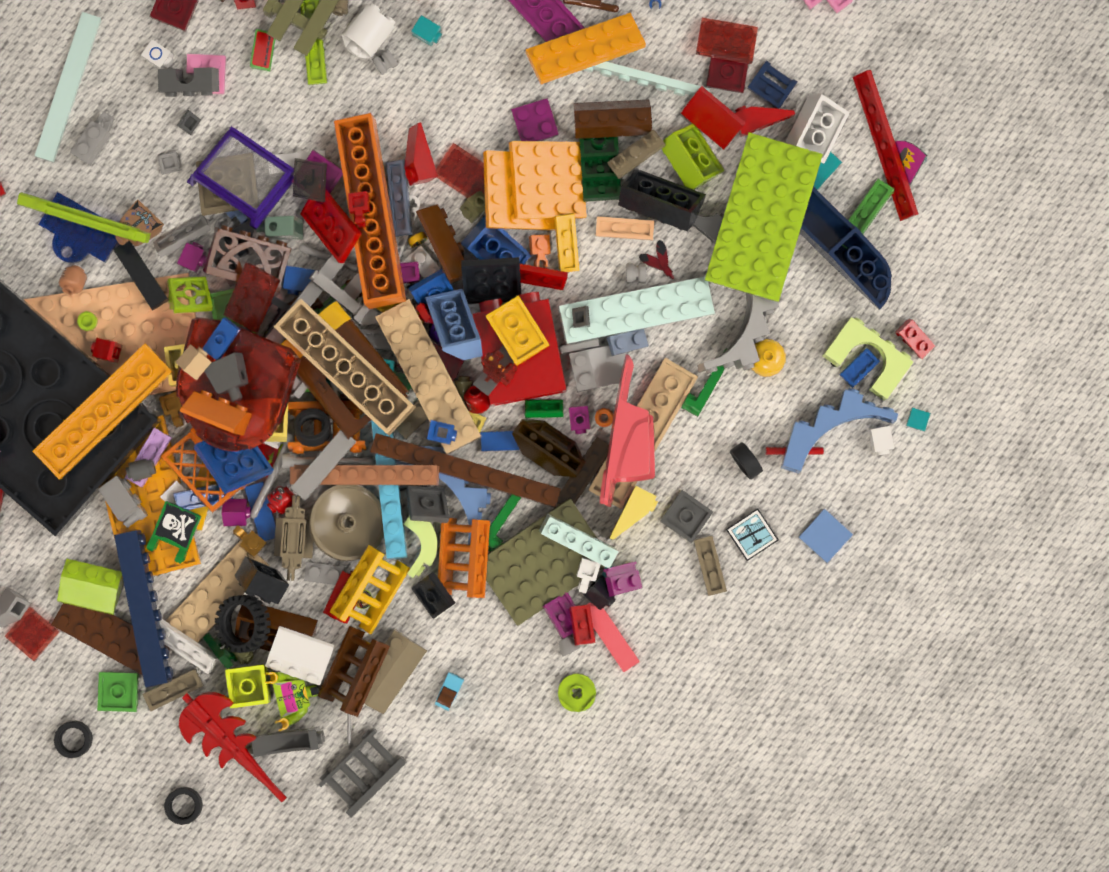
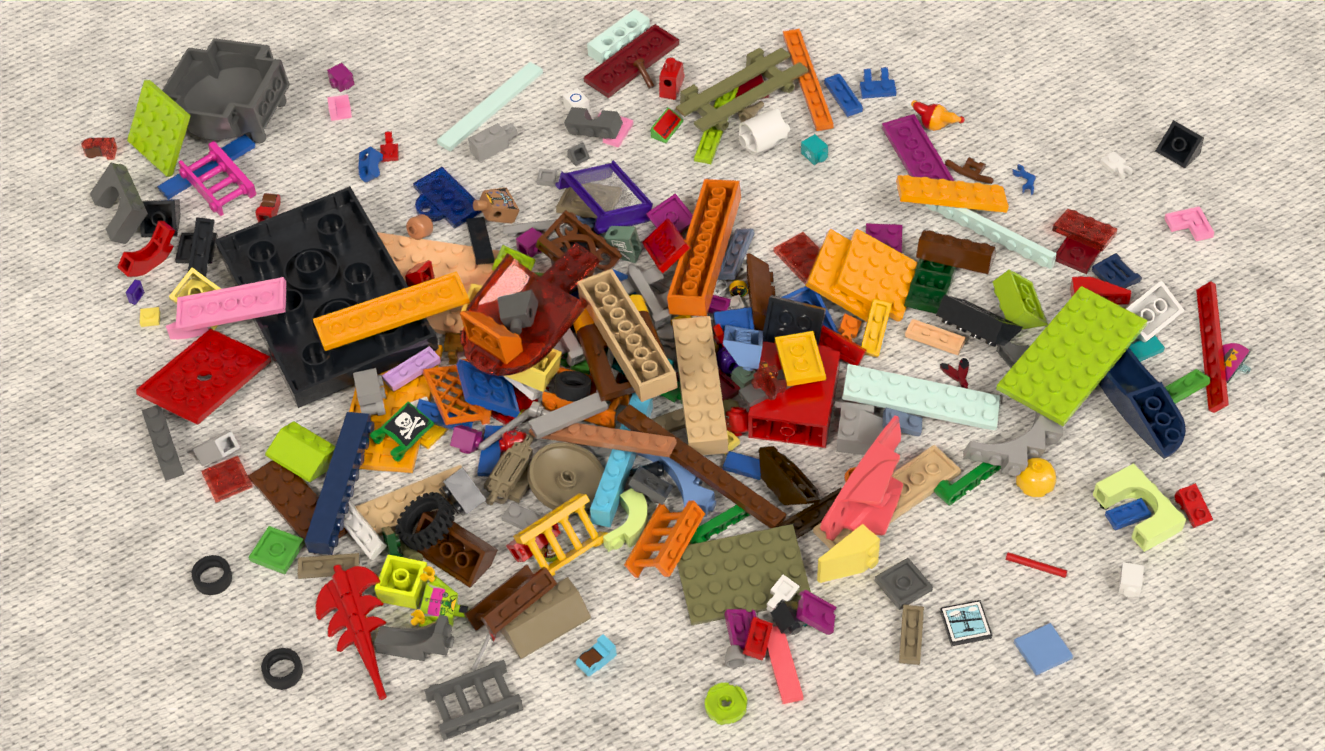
camera: 25 degrees right, 35 degrees down
(83, 218) = (454, 182): lime piece -> none
(87, 321) = (414, 257): lime tile -> none
(141, 469) = (400, 368): dark grey brick -> none
(194, 361) = (492, 288): tan brick -> none
(221, 339) = (526, 280): blue plate -> none
(250, 542) = (470, 465): pearl gold plate -> none
(299, 655) = (465, 568): white slope -> none
(309, 180) = (662, 210): clear smoke piece -> none
(359, 205) = (697, 229): red plate -> none
(384, 61) = (768, 160): light grey wheel -> none
(418, 159) = (766, 234): red slope -> none
(433, 595) = (620, 563): black tile -> none
(441, 432) = (691, 417): blue window -> none
(473, 206) = (799, 277): olive bracket -> none
(543, 408) = (798, 451): green plate -> none
(578, 541) = (785, 555): light aqua brick -> none
(579, 419) = (829, 468): magenta brick -> none
(581, 317) = (866, 375): dark grey slope -> none
(636, 154) = (968, 279): dark tan plate -> none
(636, 273) = (932, 372): light grey wheel -> none
(712, 117) = (1051, 276): red tile -> none
(746, 460) = (983, 550): black tyre -> none
(849, 409) = (1080, 543): medium blue arch -> none
(918, 419) = (1175, 577): teal tile -> none

